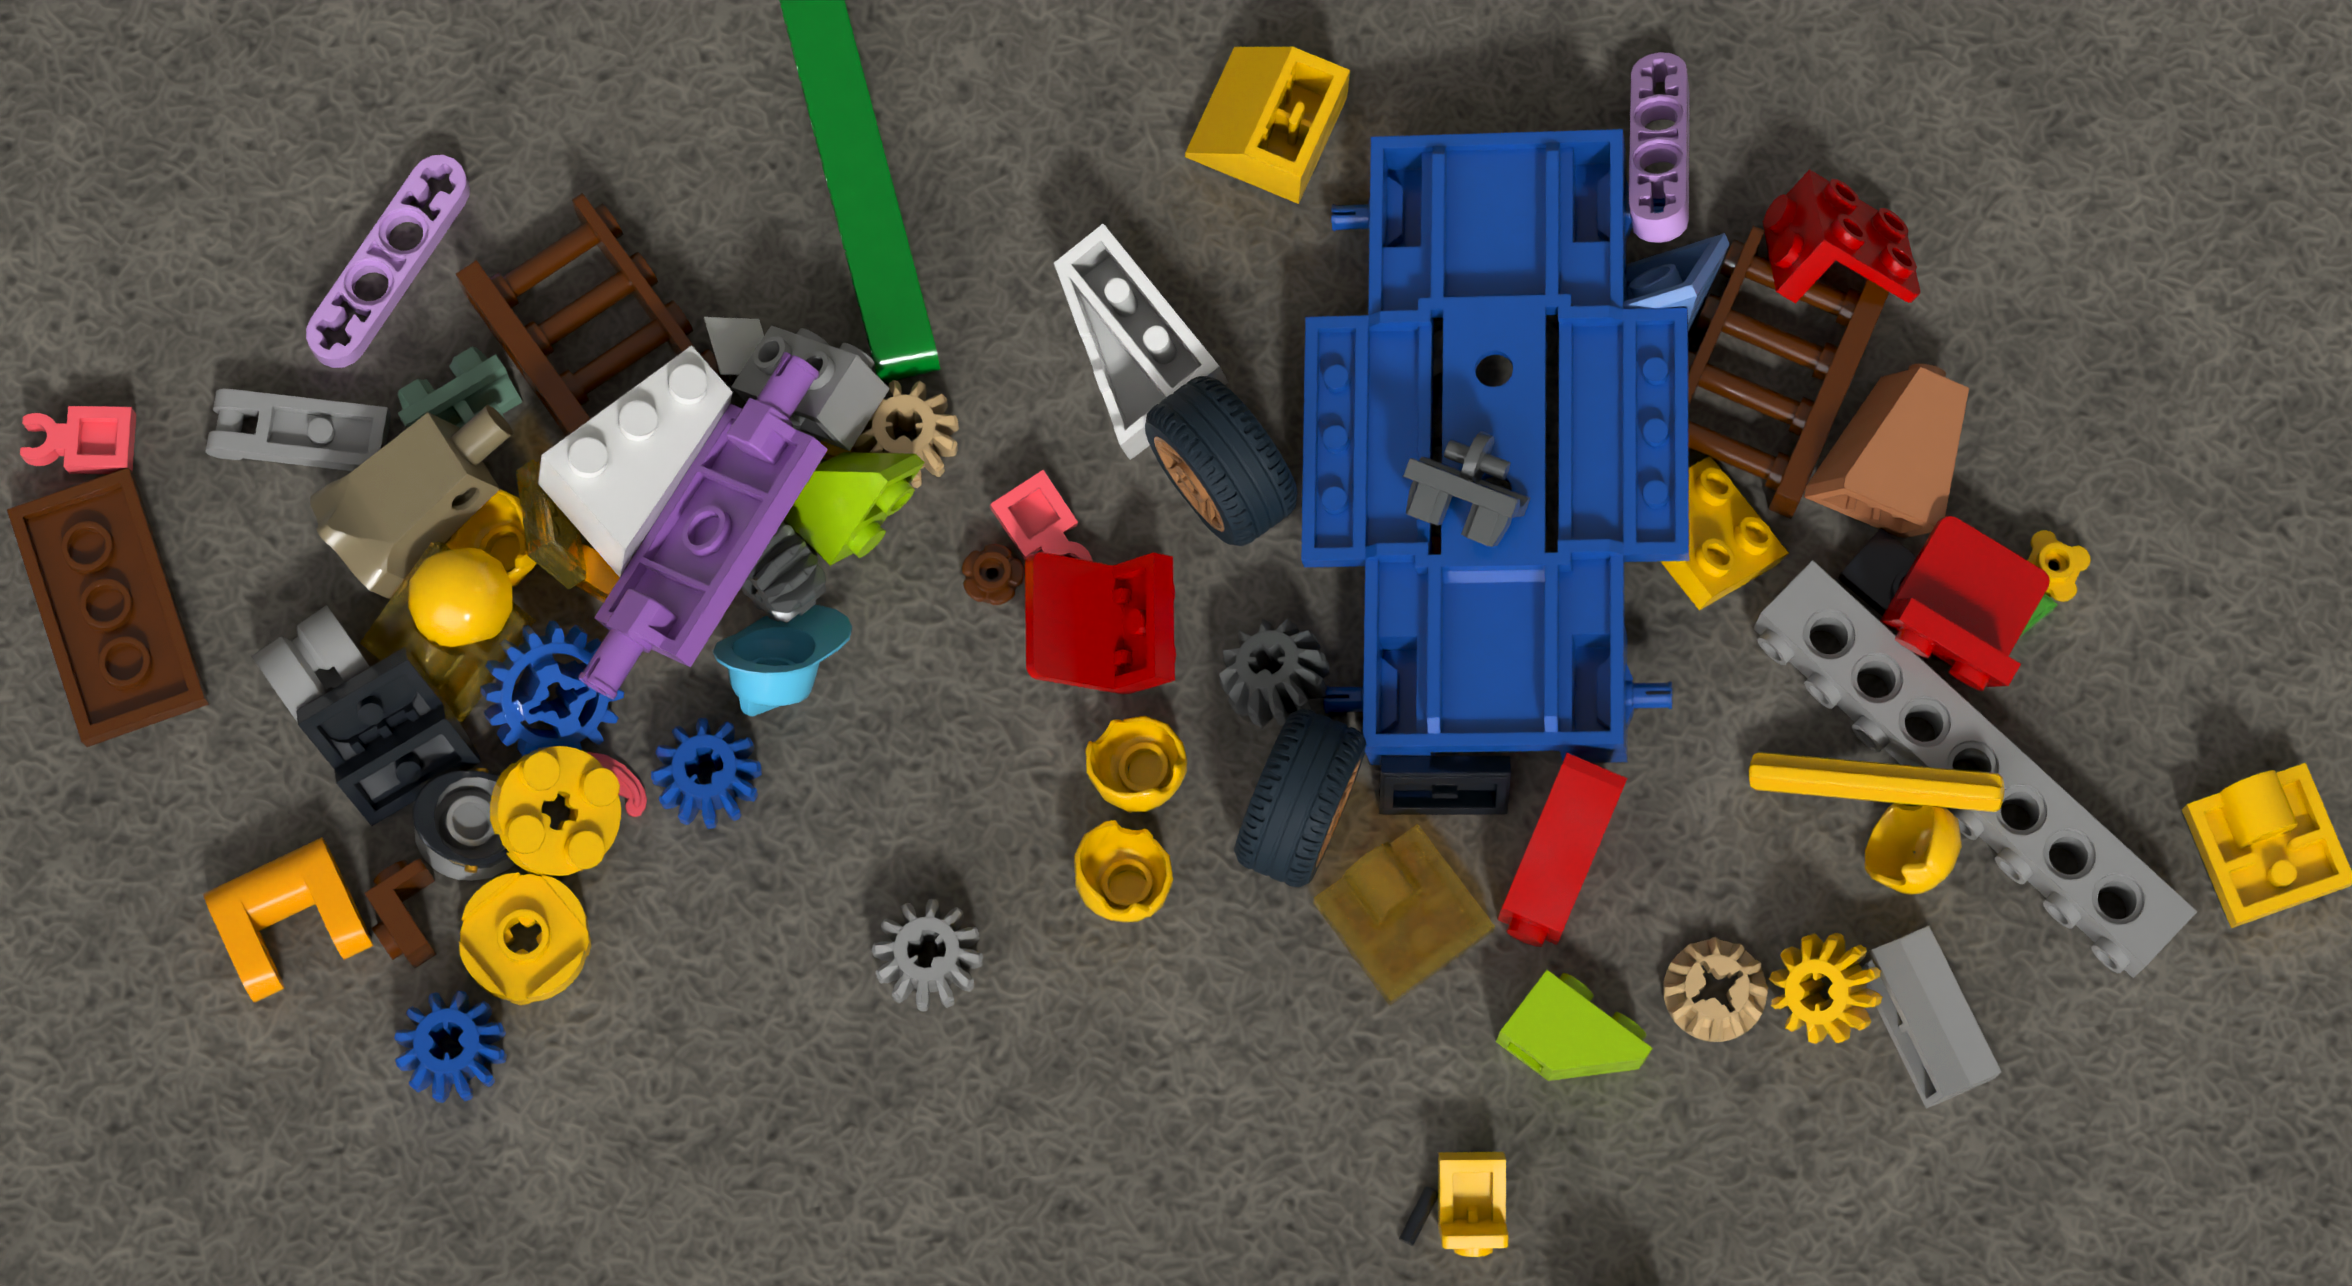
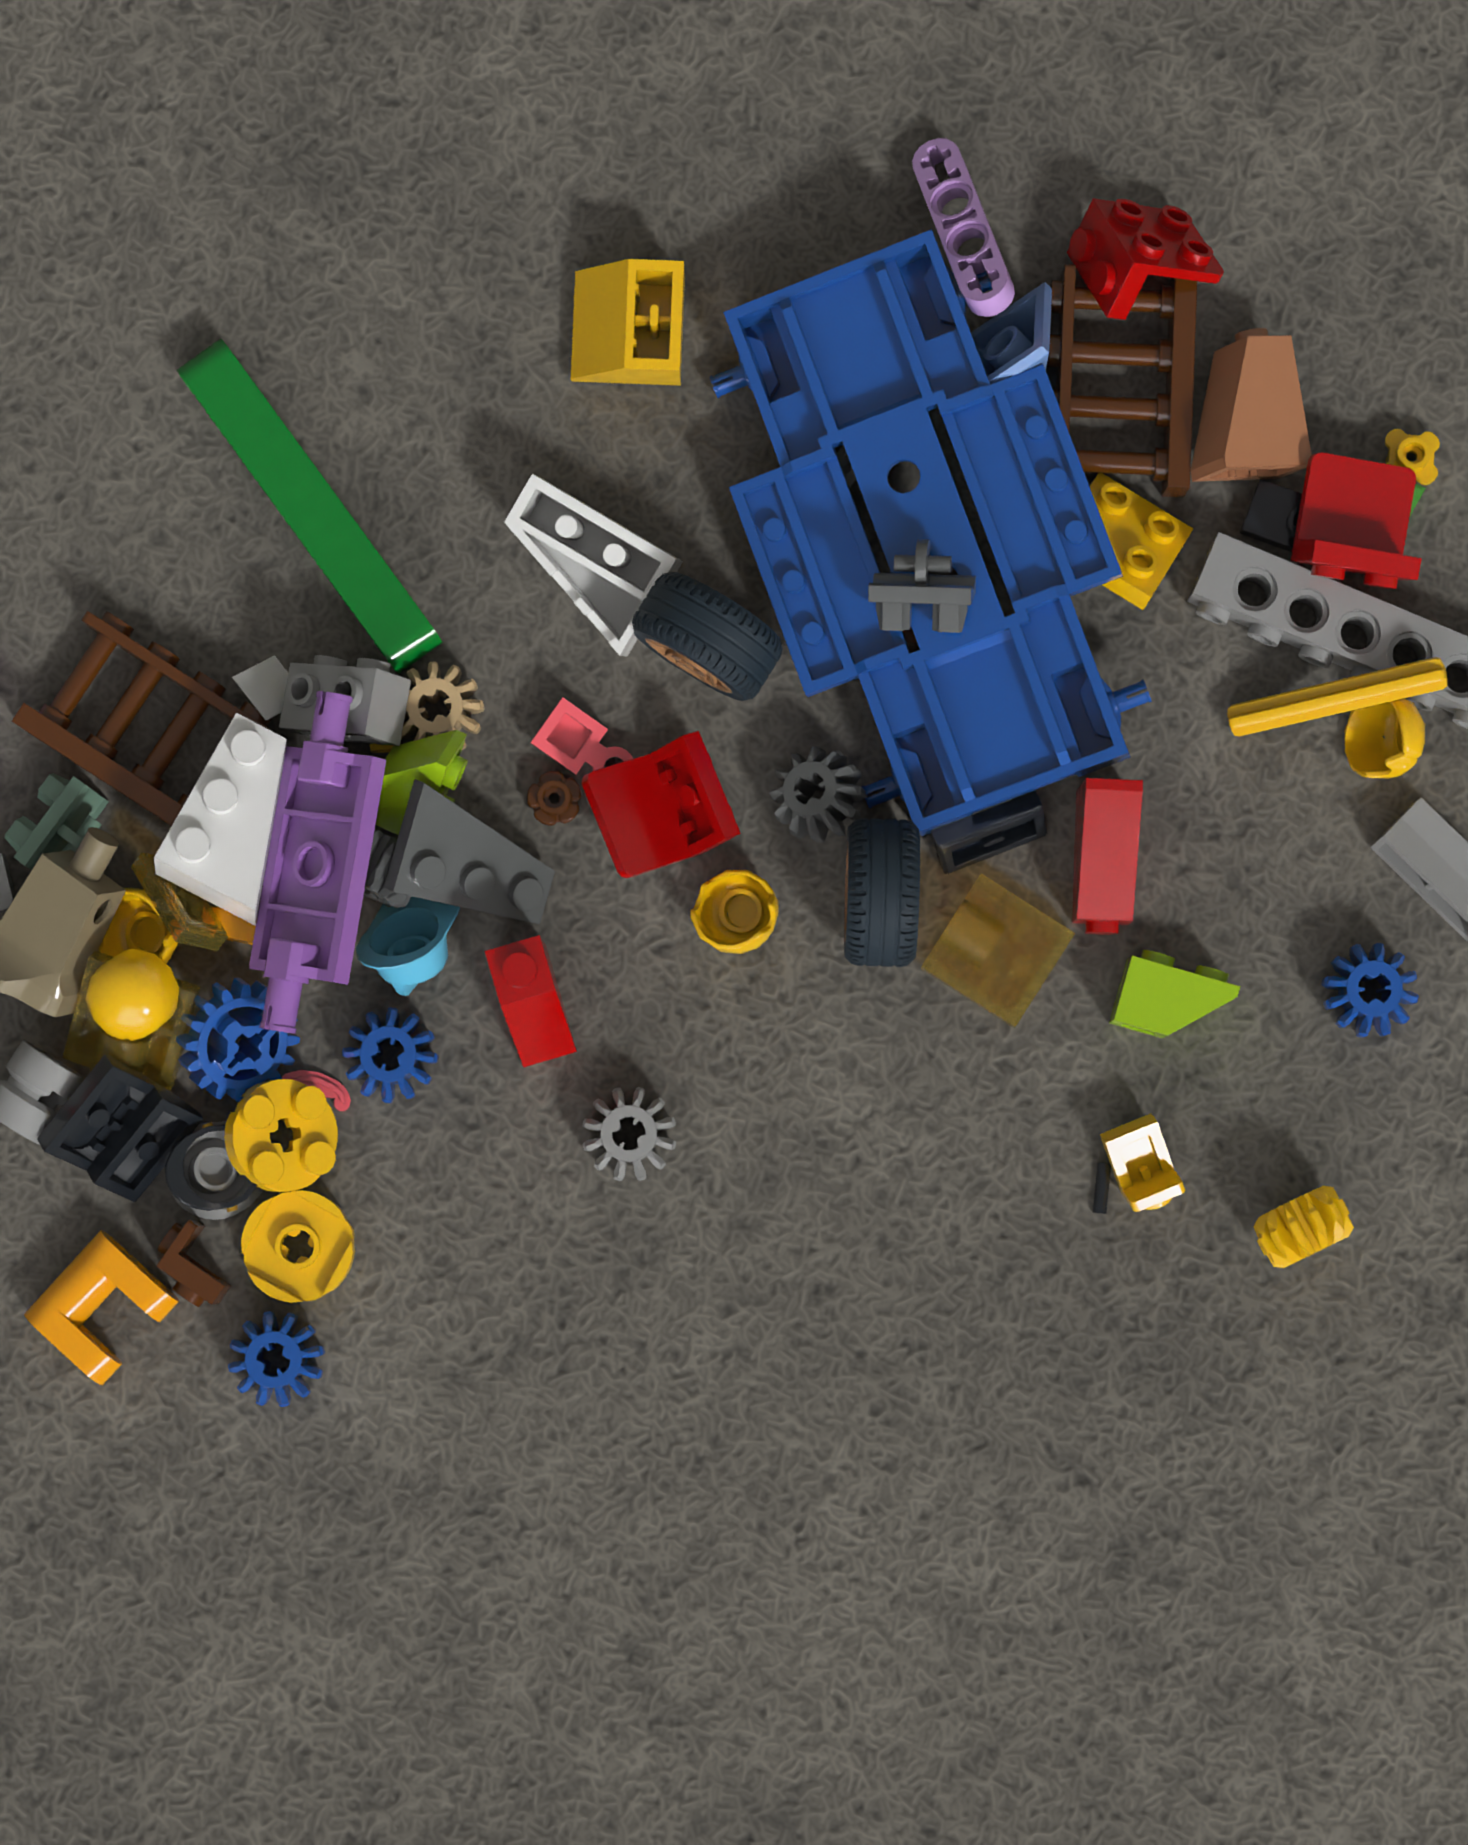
camera: 20 degrees left, 10 degrees up
(868, 595) = (463, 862): none -> dark grey wing
(879, 766) = (531, 1000): none -> red slope
(1126, 895) = (771, 1018): yellow hair -> none
(1708, 1018) = (1241, 915): tan gear -> none
(1792, 1133) = (1375, 1010): none -> blue gear
(1804, 982) = (1380, 885): yellow gear -> none

